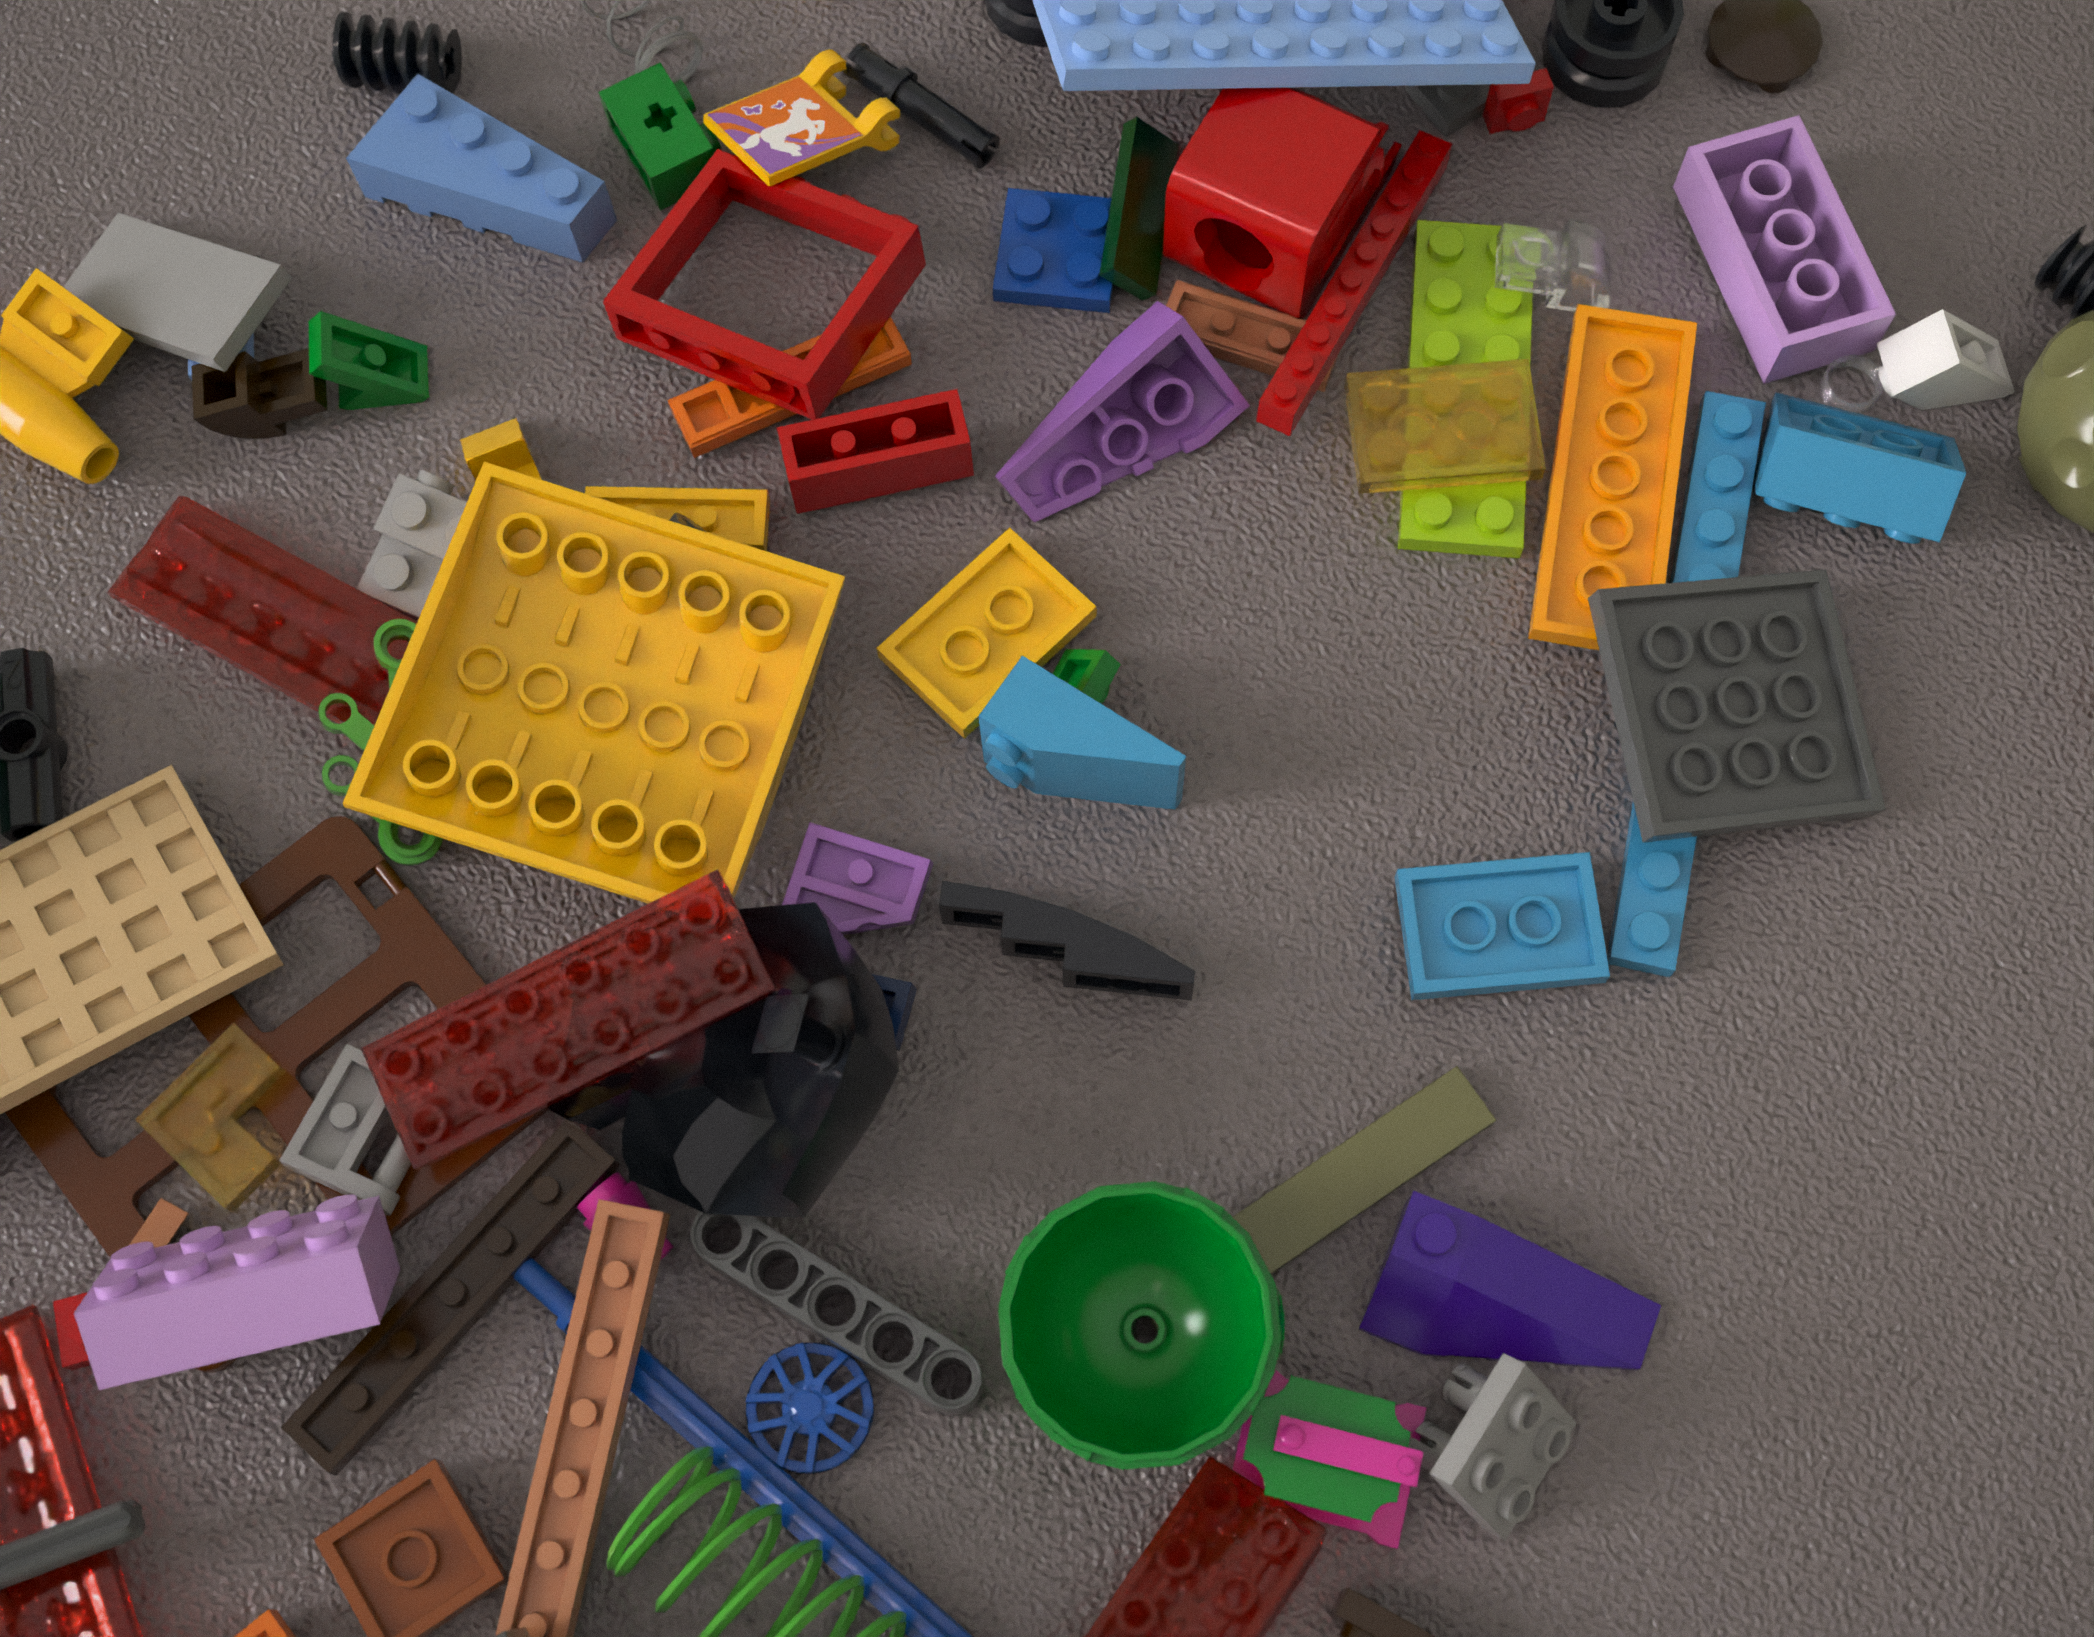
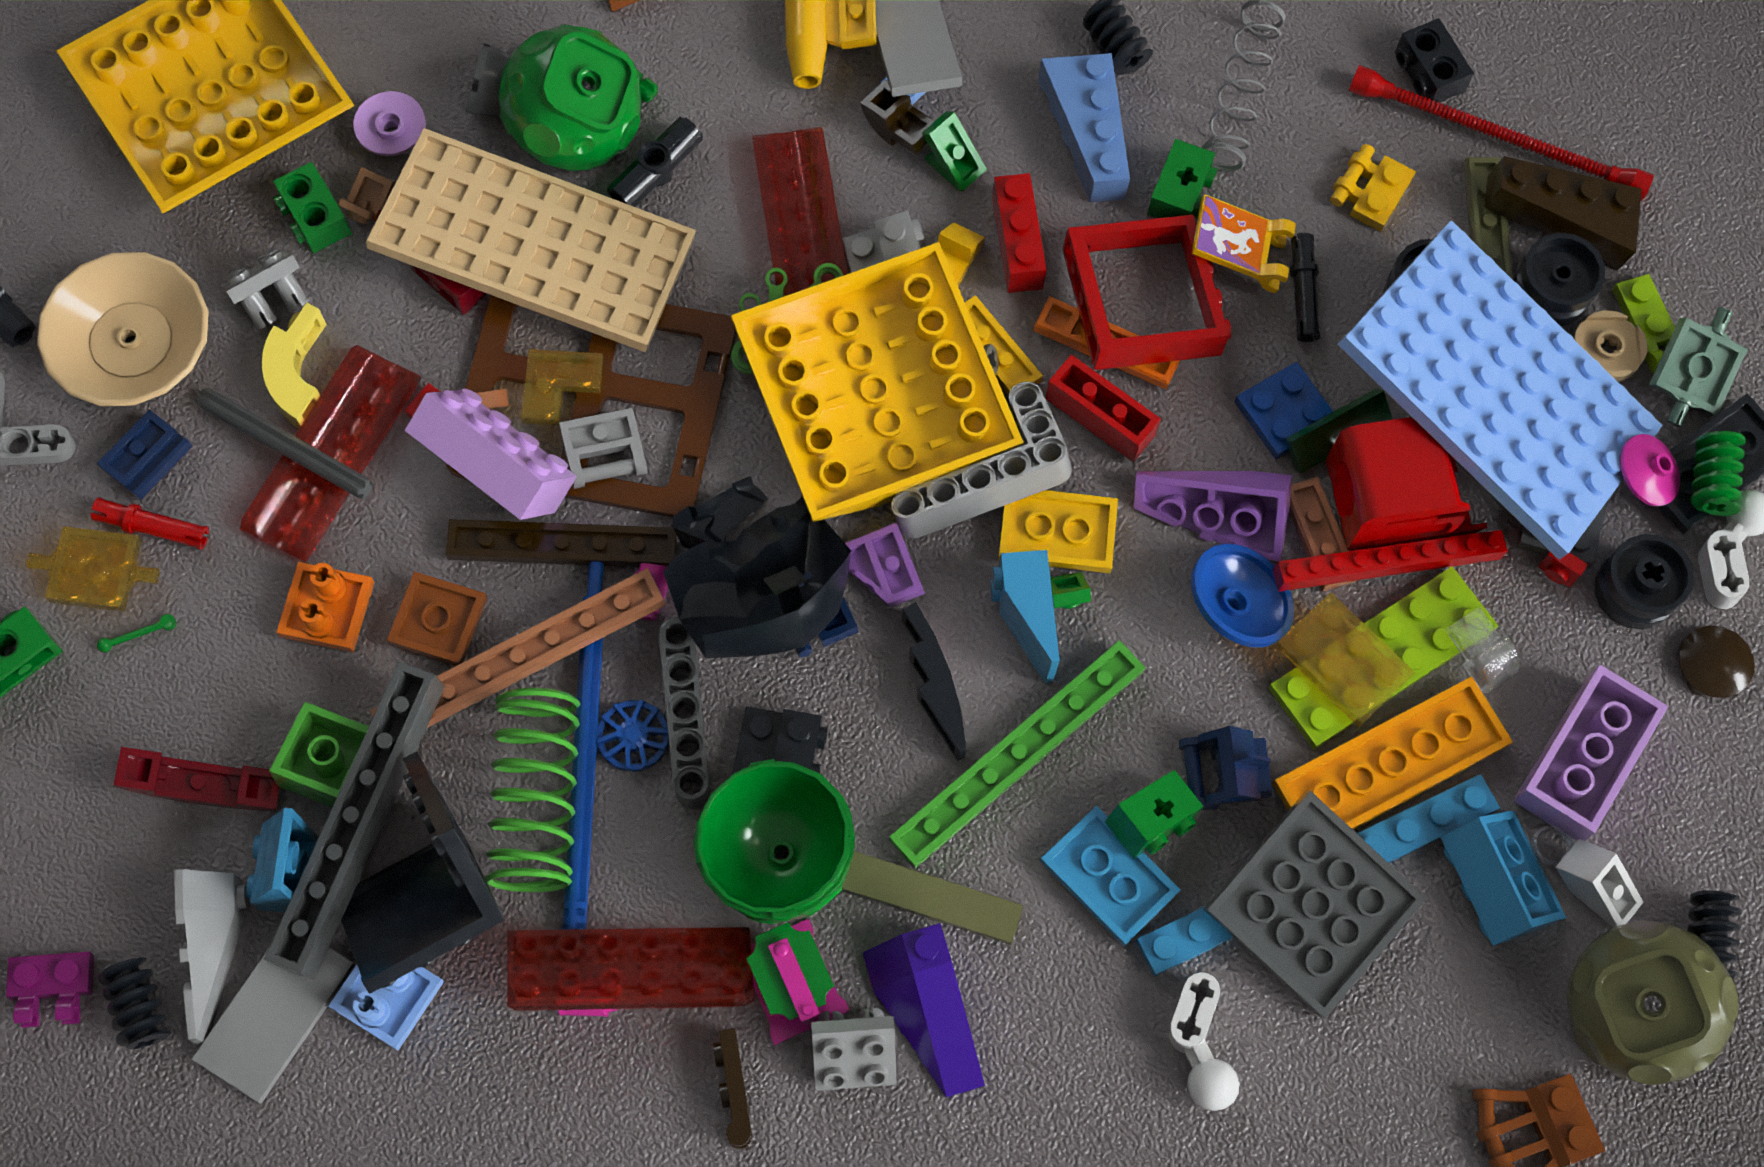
camera: 45 degrees right, 0 degrees up
(550, 370) = (1018, 233): none -> red brick
(568, 1020) = (717, 491): clear red plate -> none
(850, 647) = (996, 475): none -> light grey beam
(981, 1216) = (780, 736): none -> black plate
(1248, 922) = (1016, 754): none -> bright green plate
(1265, 482) = (1240, 596): none -> blue dish
(1470, 806) = (1154, 814): none -> green brick
(1482, 653) = (1240, 766): none -> dark blue piece
(1871, 1008) = (1211, 1081): none -> white beam

